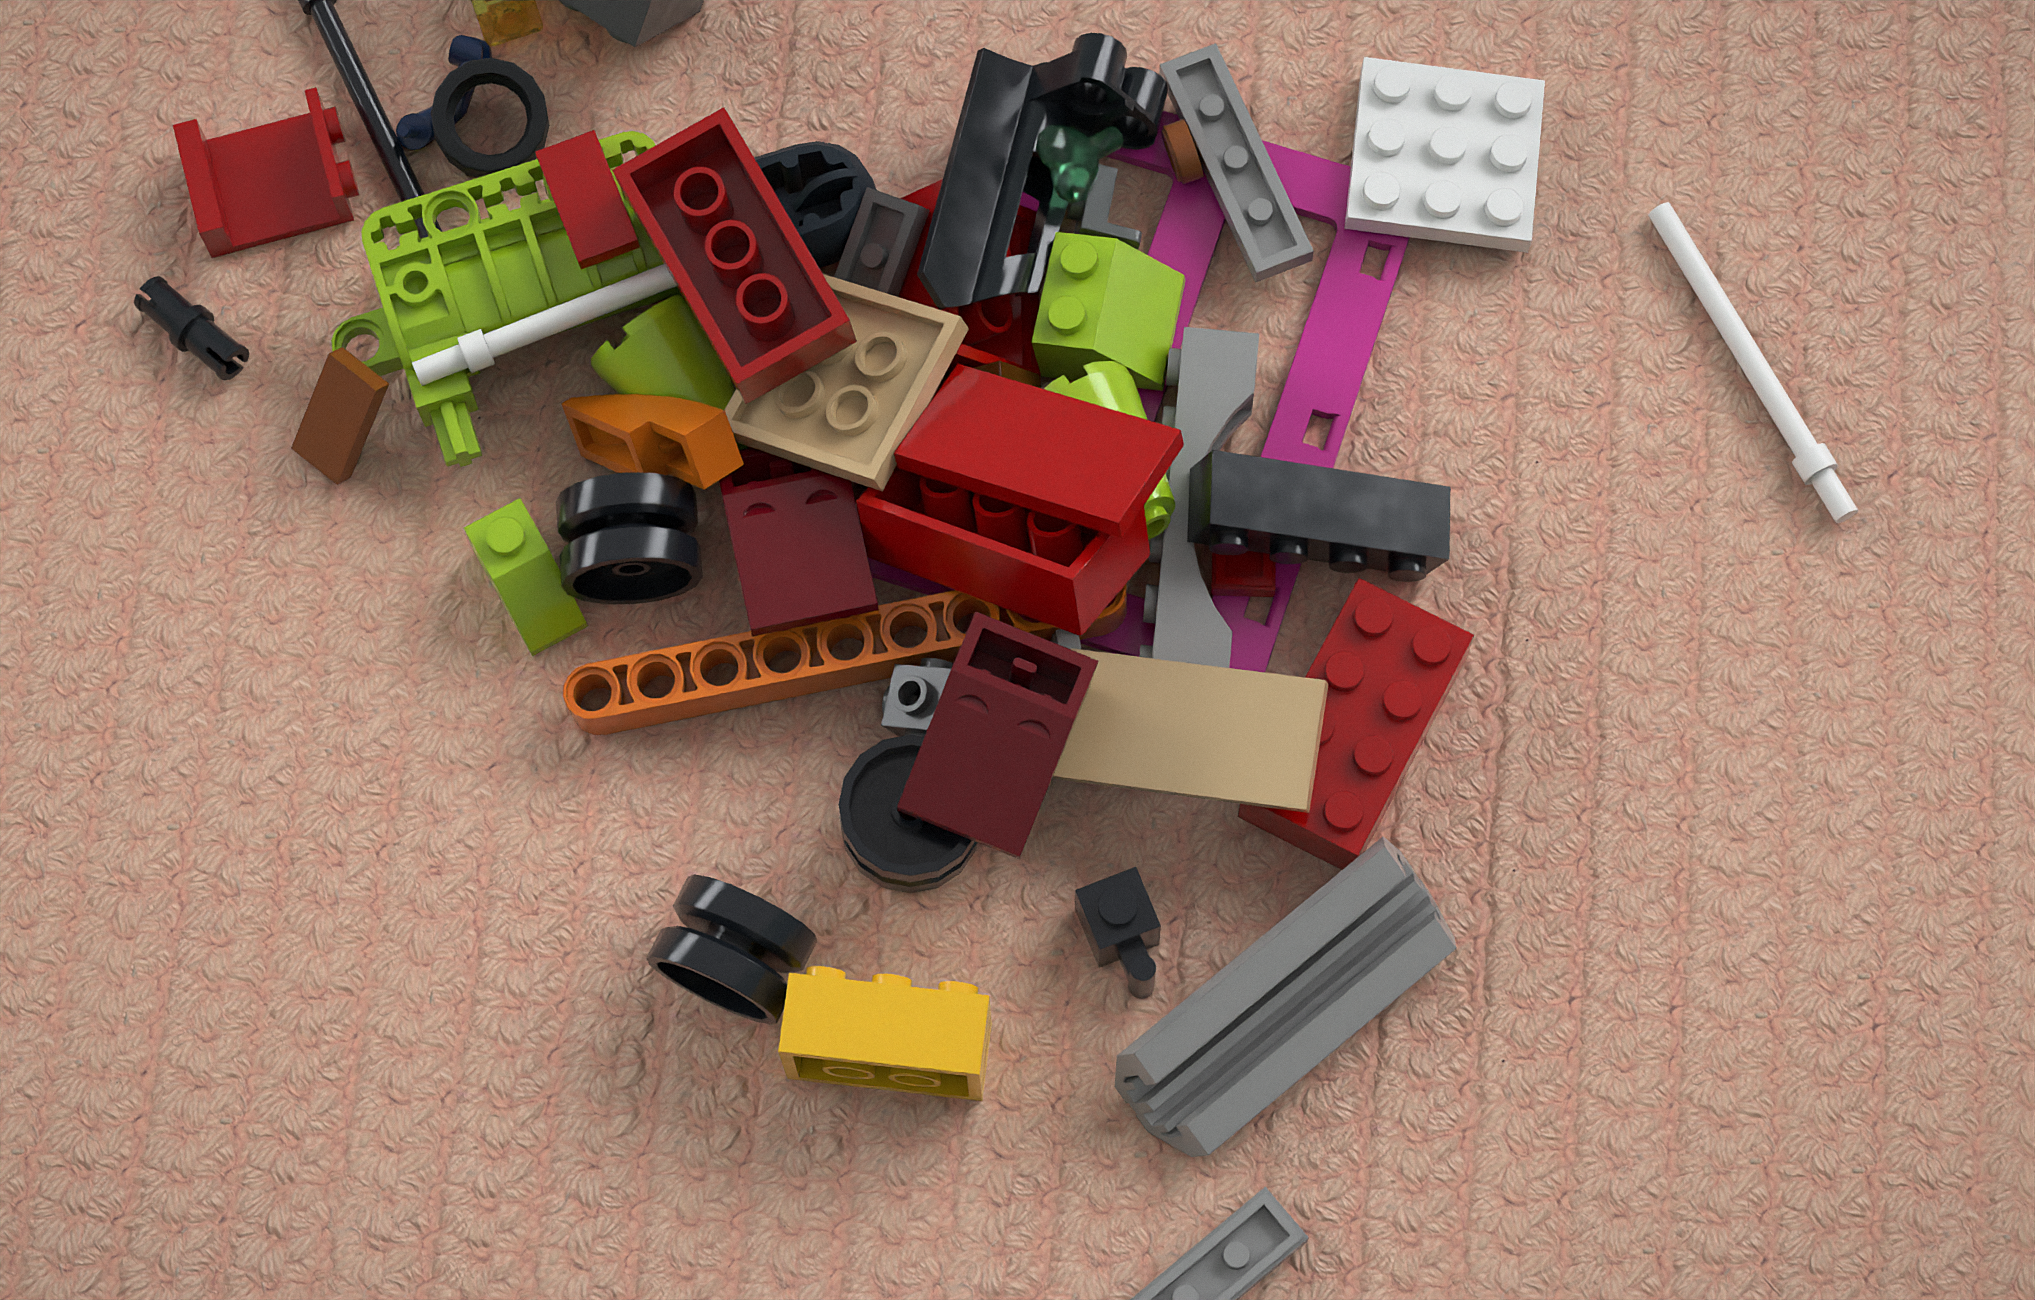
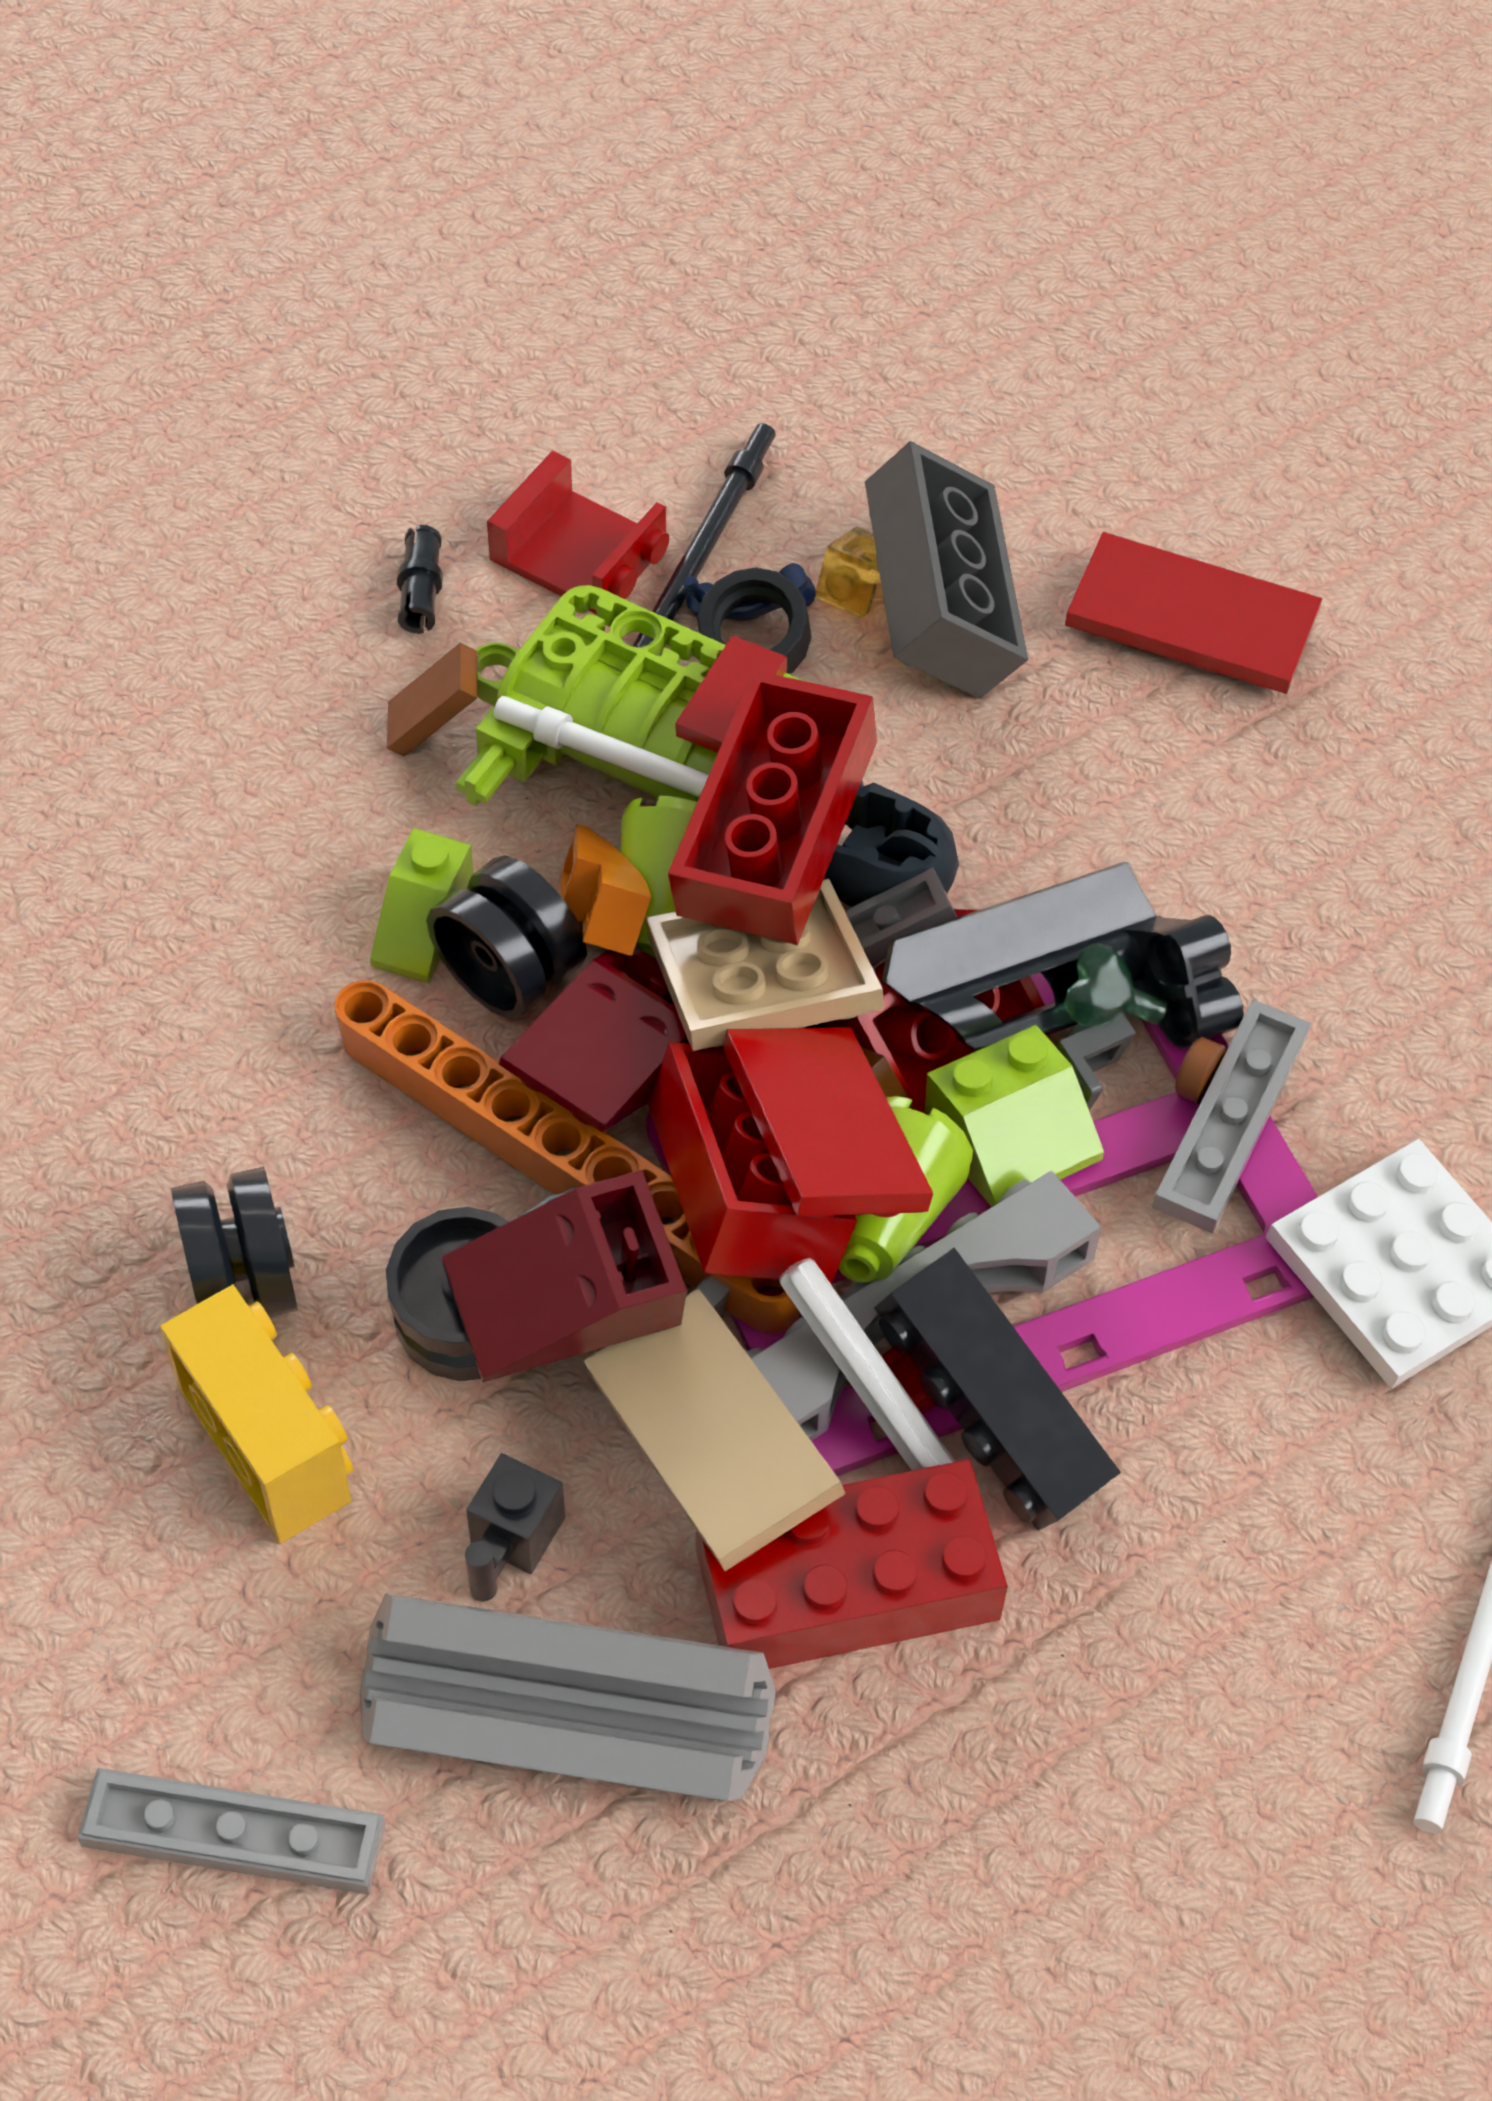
camera: 45 degrees right, 15 degrees down
(1235, 589) = (863, 1366): none -> white axle

